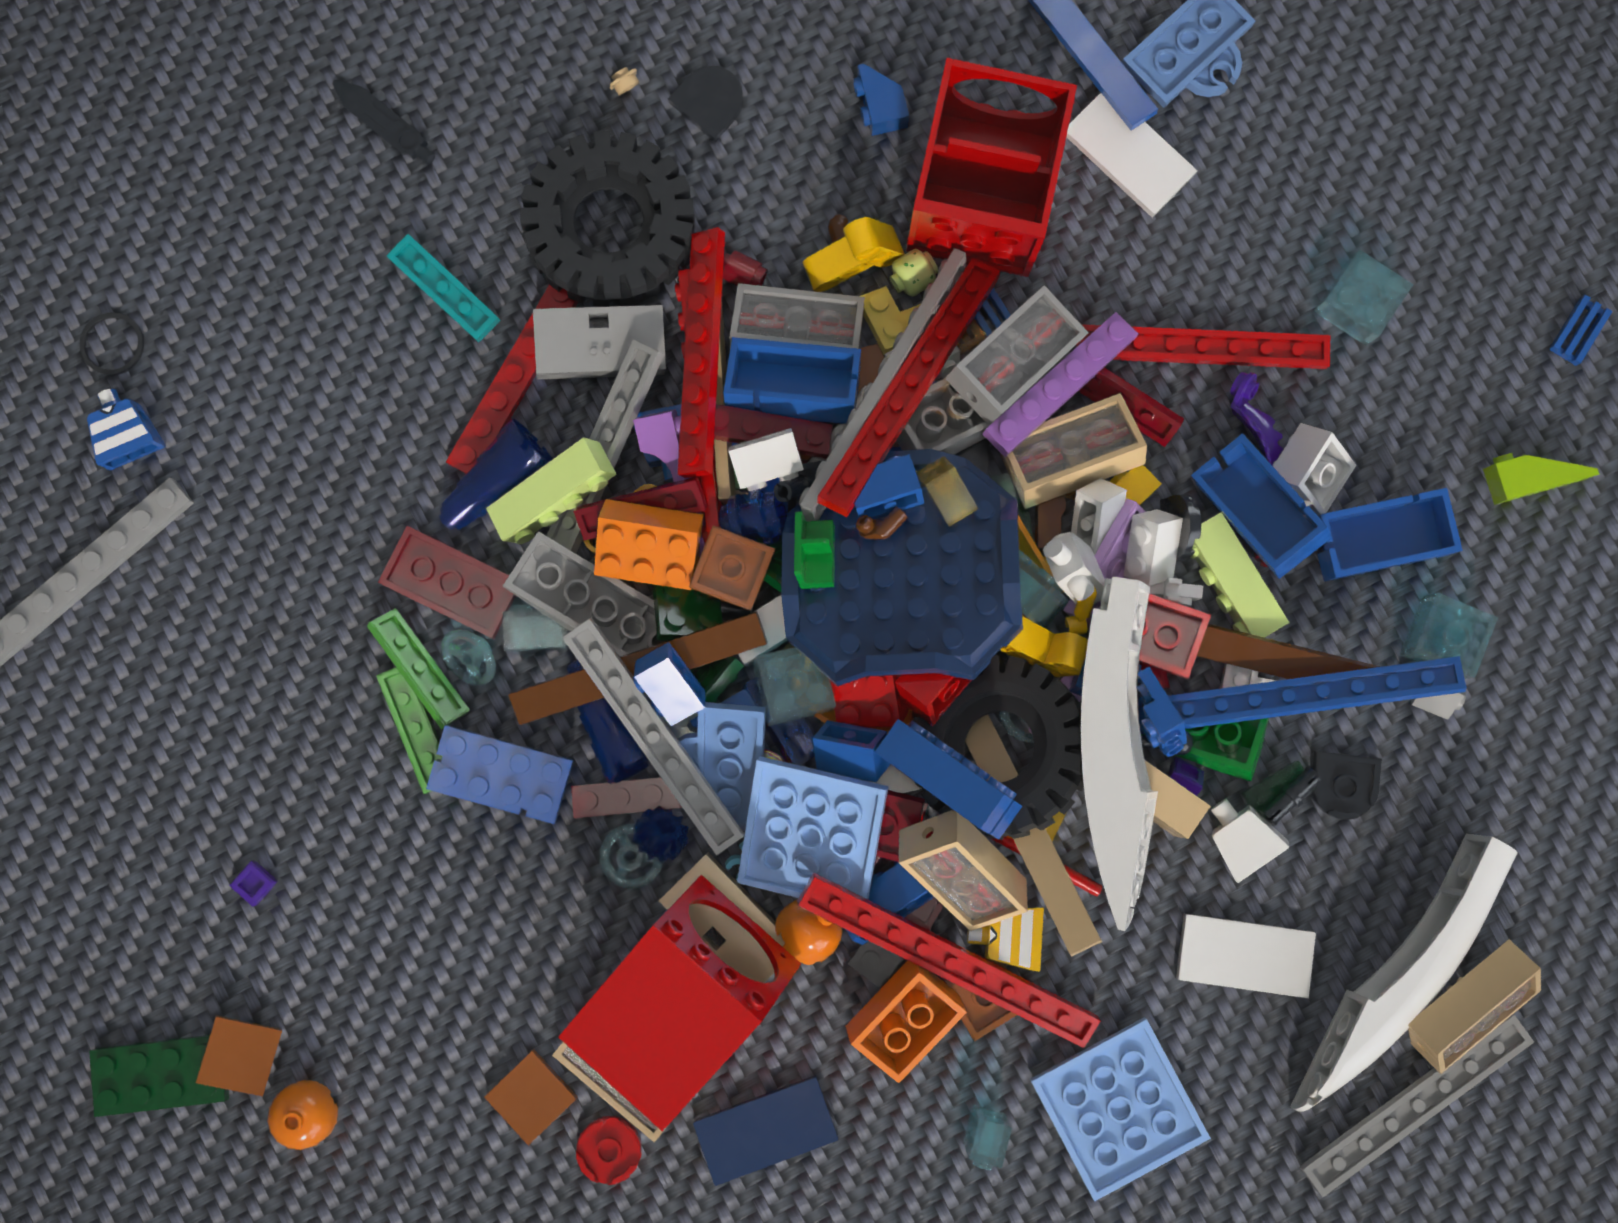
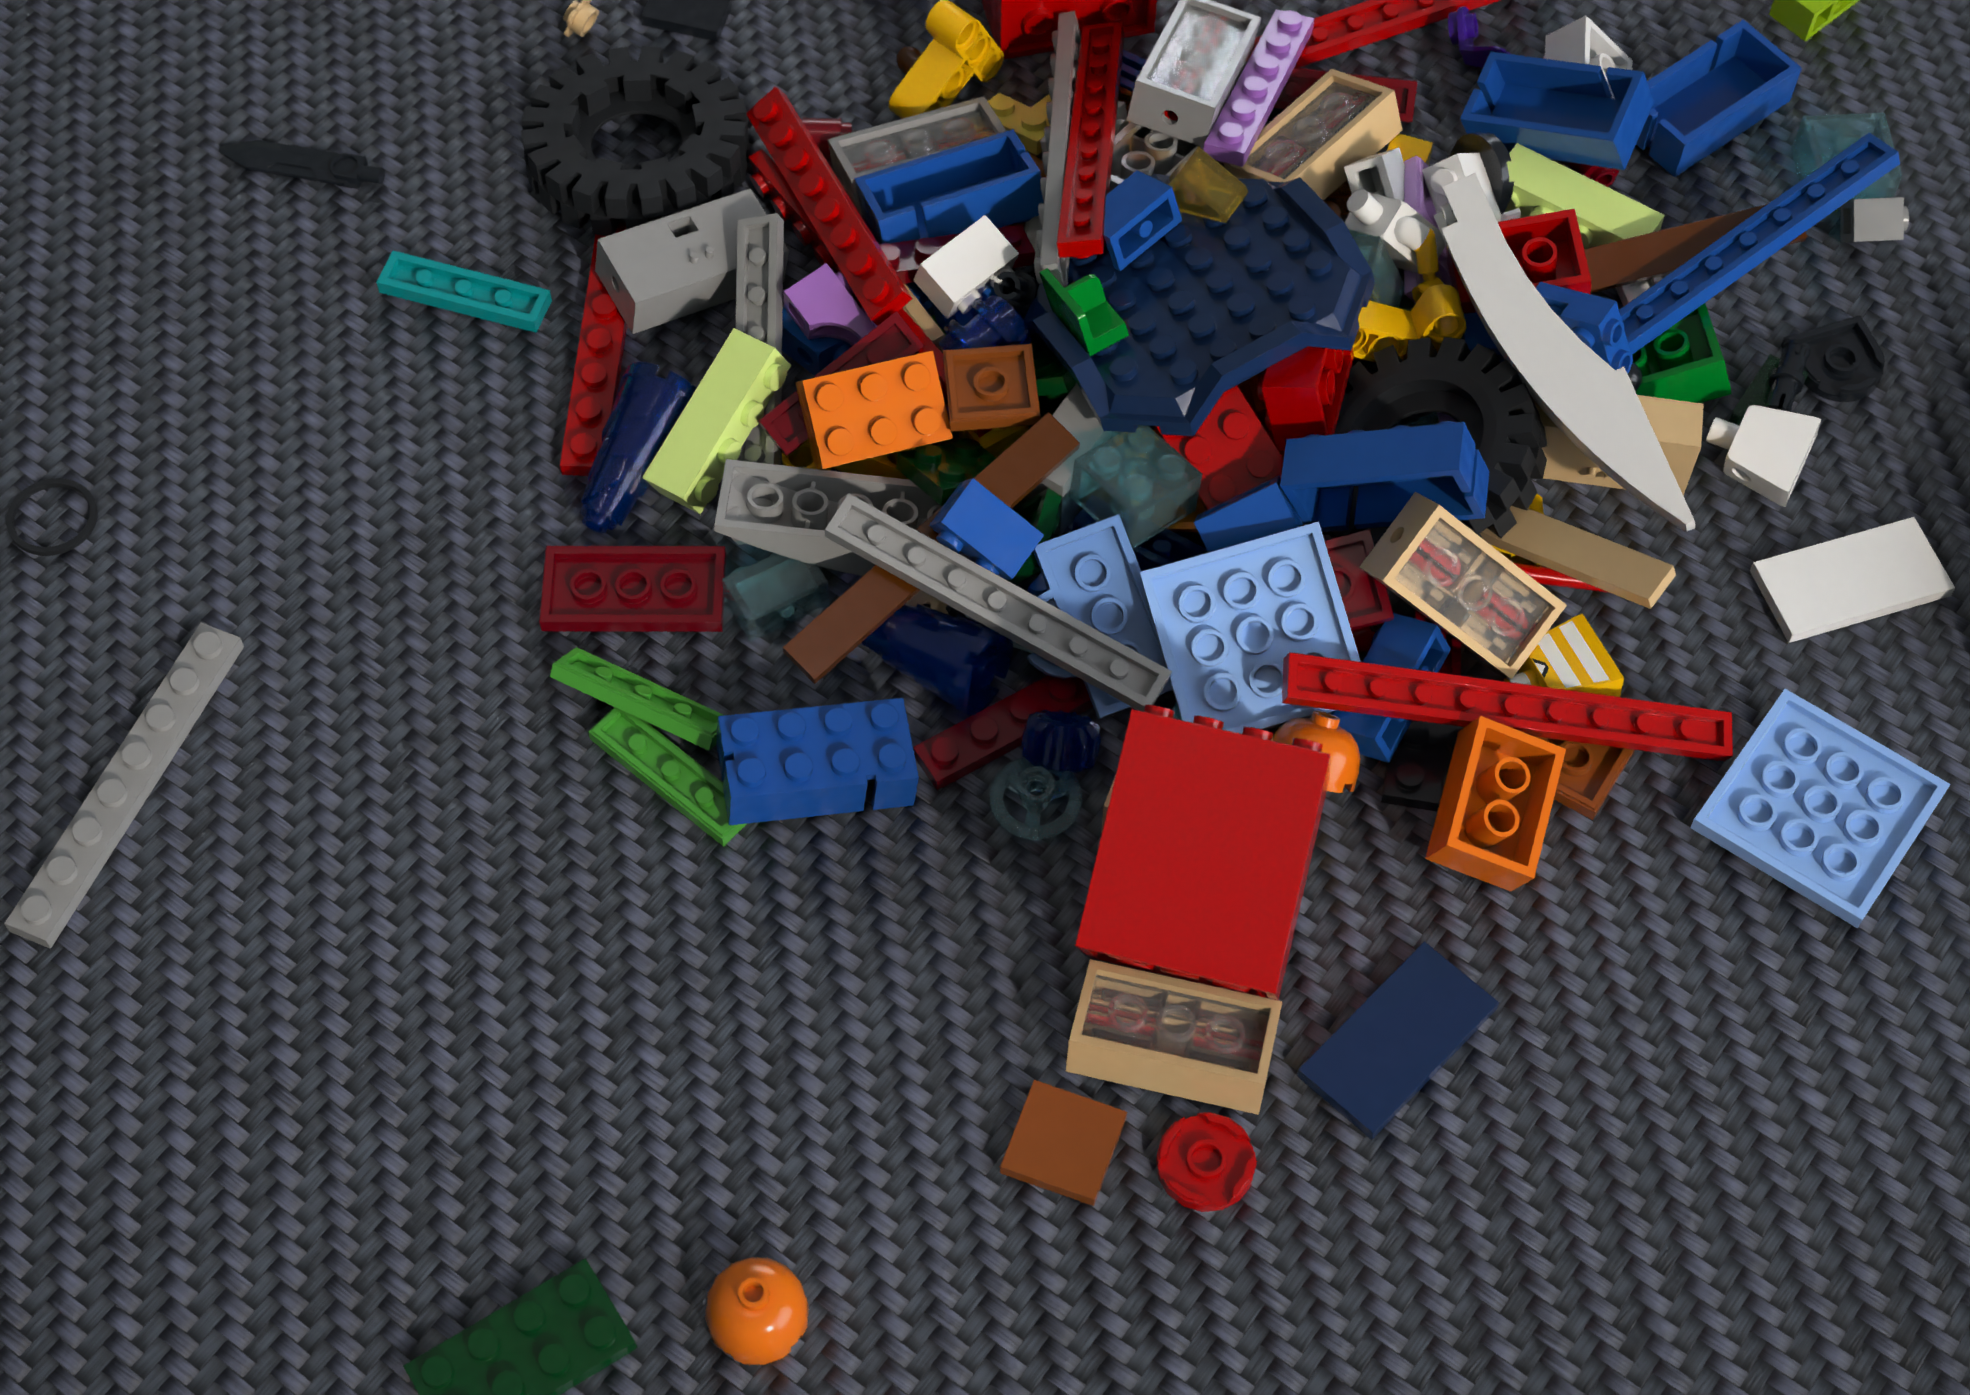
camera: 30 degrees left, 25 degrees down
(121, 431) = (115, 595): blue torso -> none
(239, 1056) = (629, 1266): dark orange tile -> none
(253, 883) = (540, 1051): dark purple tile -> none
(471, 654) = (718, 645): clear light blue piece -> none
(880, 529) = (1152, 255): reddish brown arm -> none
(913, 272) = (1023, 67): yellowish green head -> none
(987, 1137) = (1682, 894): clear light blue brick -> none

